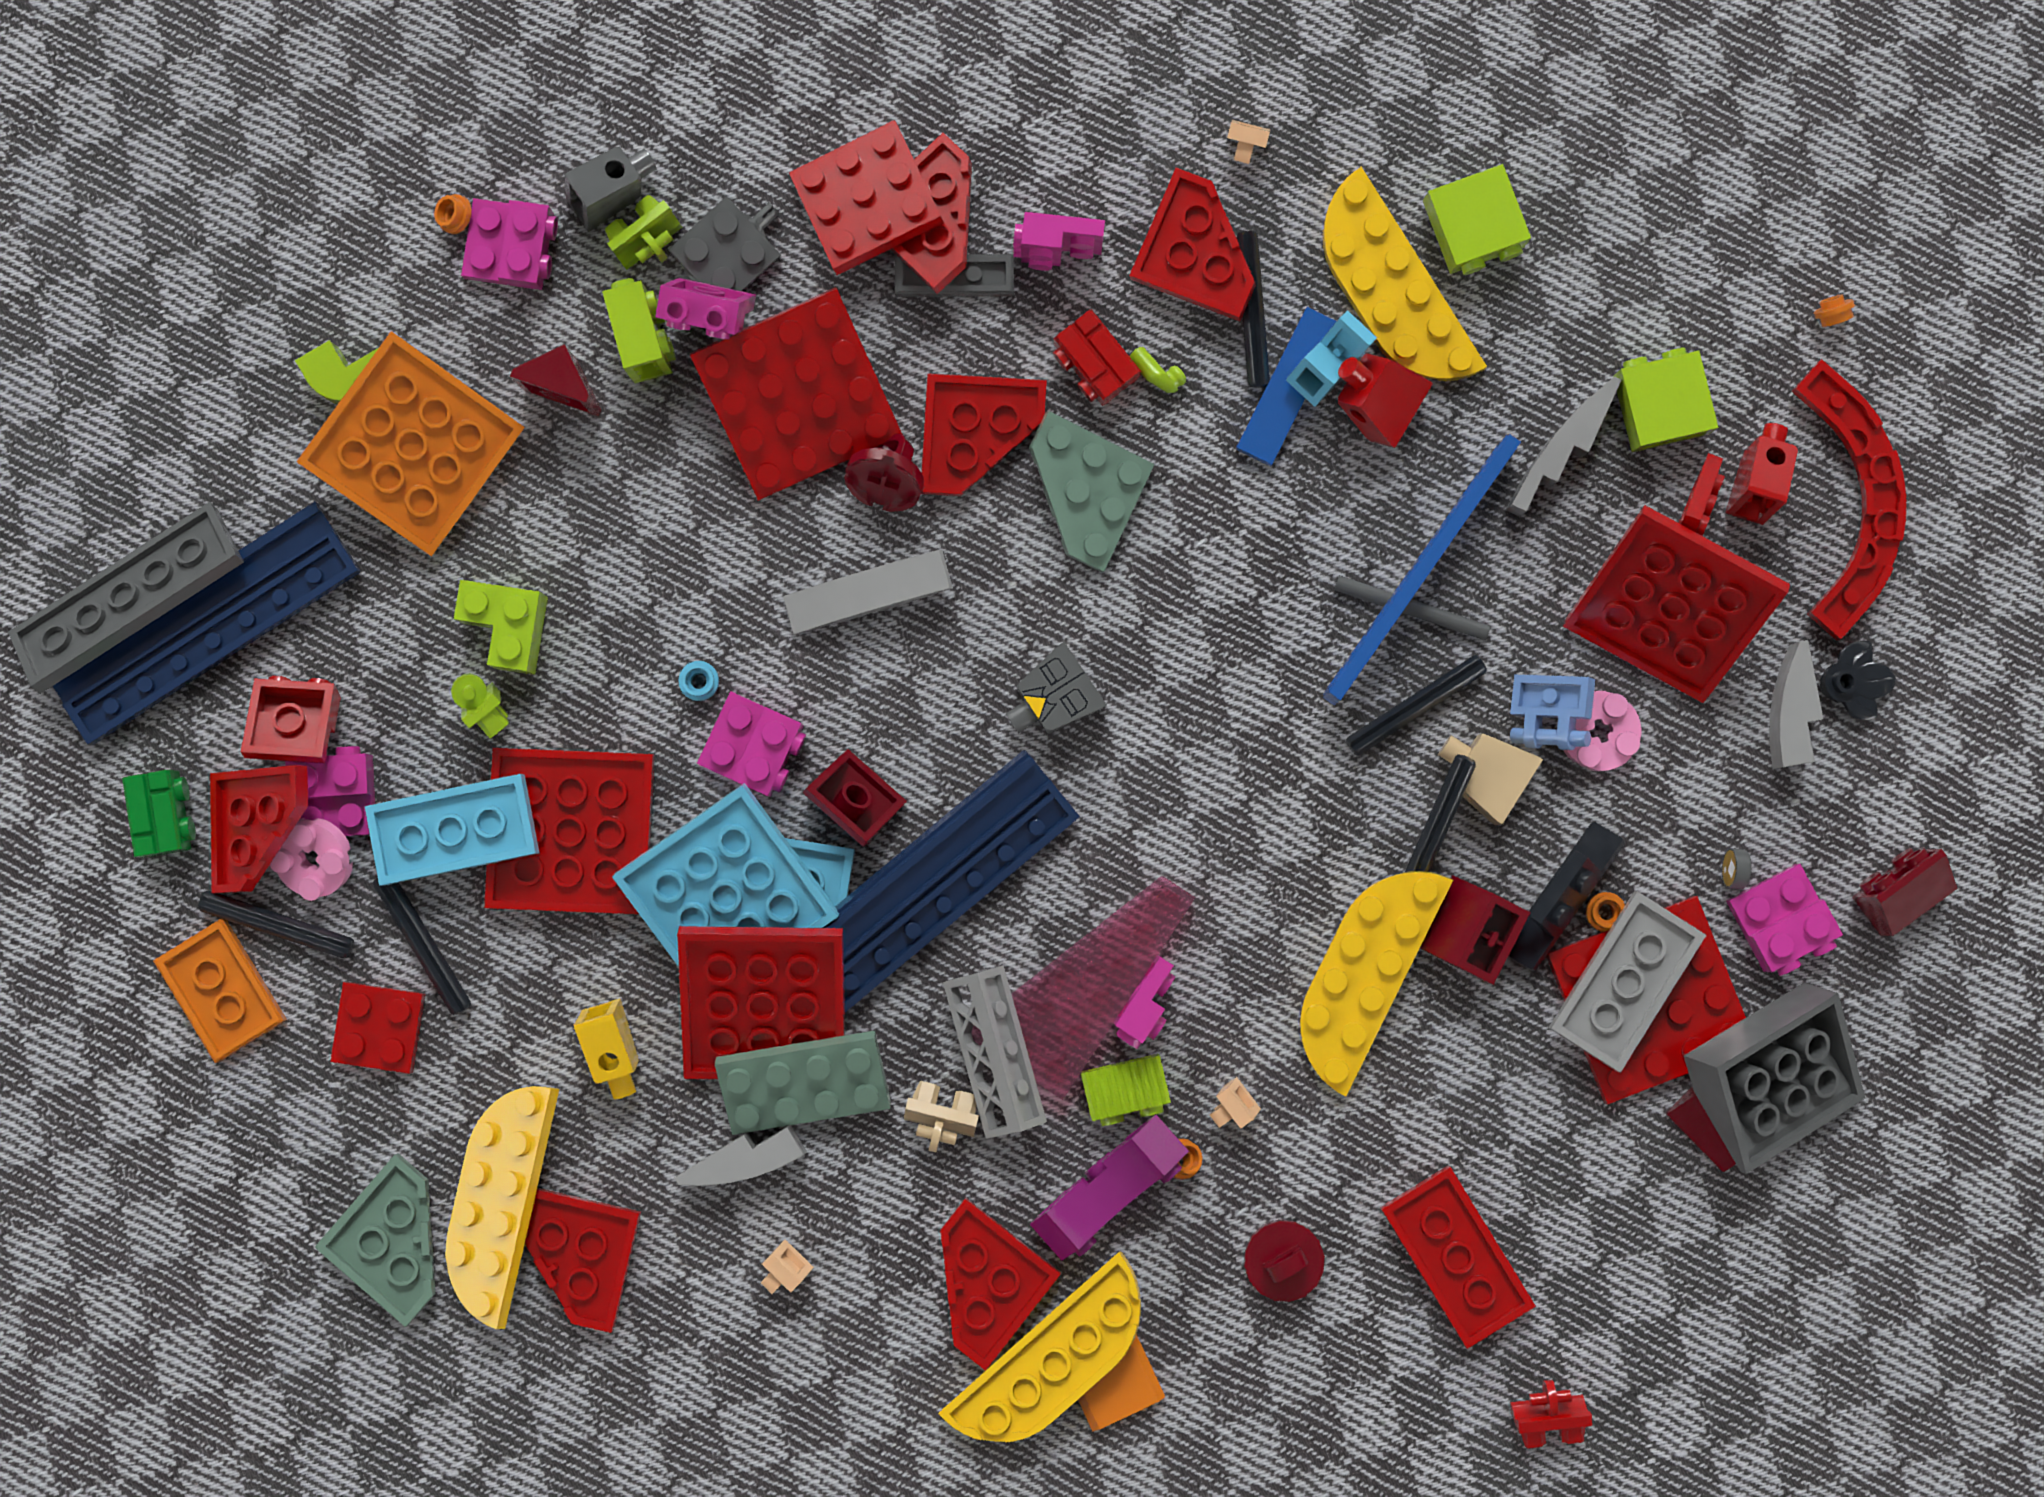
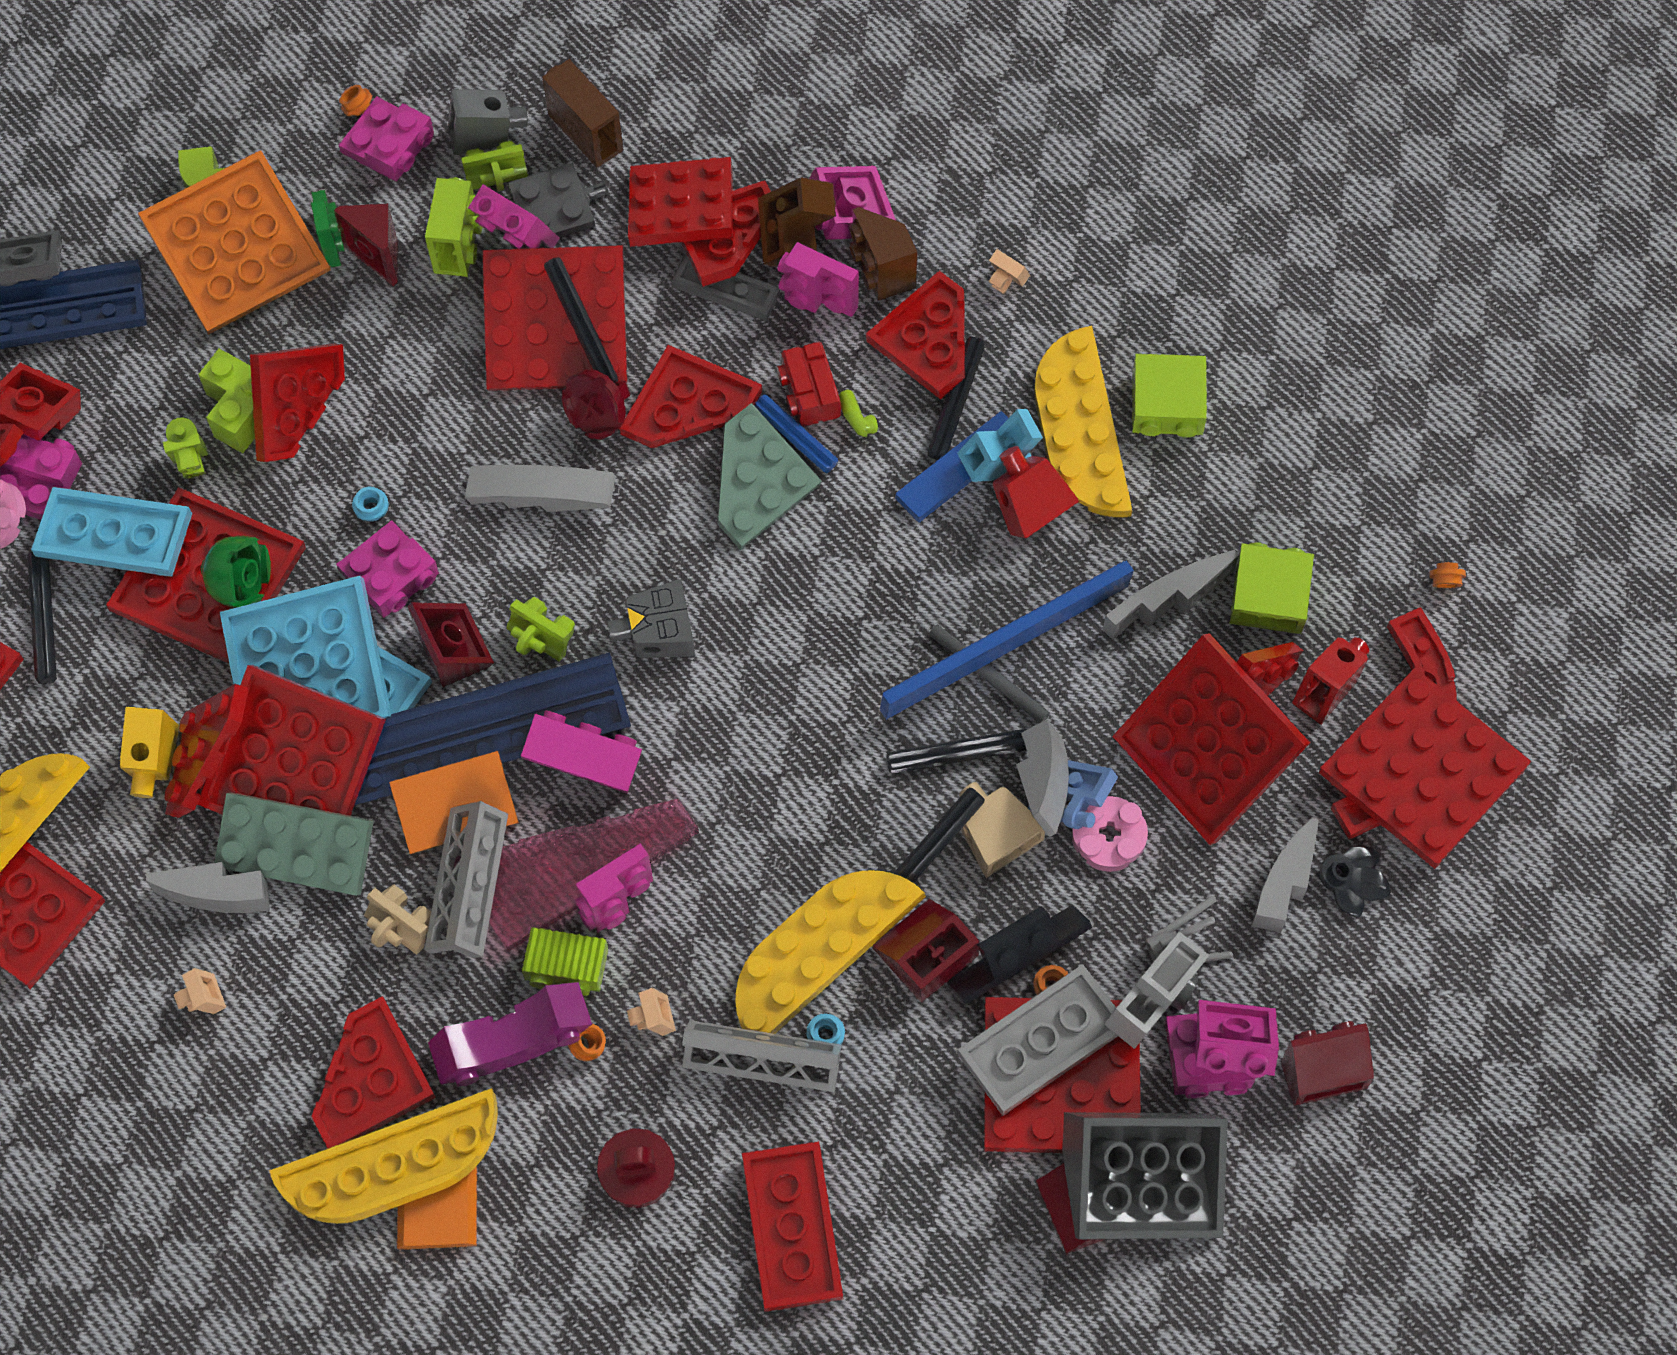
camera: 20 degrees right, 20 degrees down
(503, 388) = (327, 228): none -> green plate
(560, 599) = (291, 395): none -> red plate
(605, 826) = (236, 570): none -> green cylinder
(664, 1018) = (199, 752): none -> red plate
(713, 134) = (582, 113): none -> reddish brown brick
(830, 393) = (579, 318): none -> black axle
(937, 755) = (537, 632): none -> lime hips
(944, 952) = (427, 797): none -> orange tile
(998, 180) = (791, 214): none -> reddish brown brick
(1044, 122) = (852, 189): none -> dark pink plate
(1047, 870) = (582, 751): none -> dark pink brick
(1103, 419) = (796, 434): none -> blue axle
(1112, 175) = (884, 253): none -> reddish brown slope
(1359, 1103) = (762, 1047): none -> light grey fence
(1420, 1052) = (826, 1021): none -> medium azure plate
(1521, 706) = (1045, 775): none -> light grey slope
(1704, 830) = (1163, 937): none -> light grey plant
(1722, 891) = (1156, 990): none -> light grey slope
(1816, 907) = (1236, 1038): none -> dark pink plate
(1890, 538) = (1424, 767): none -> red plate

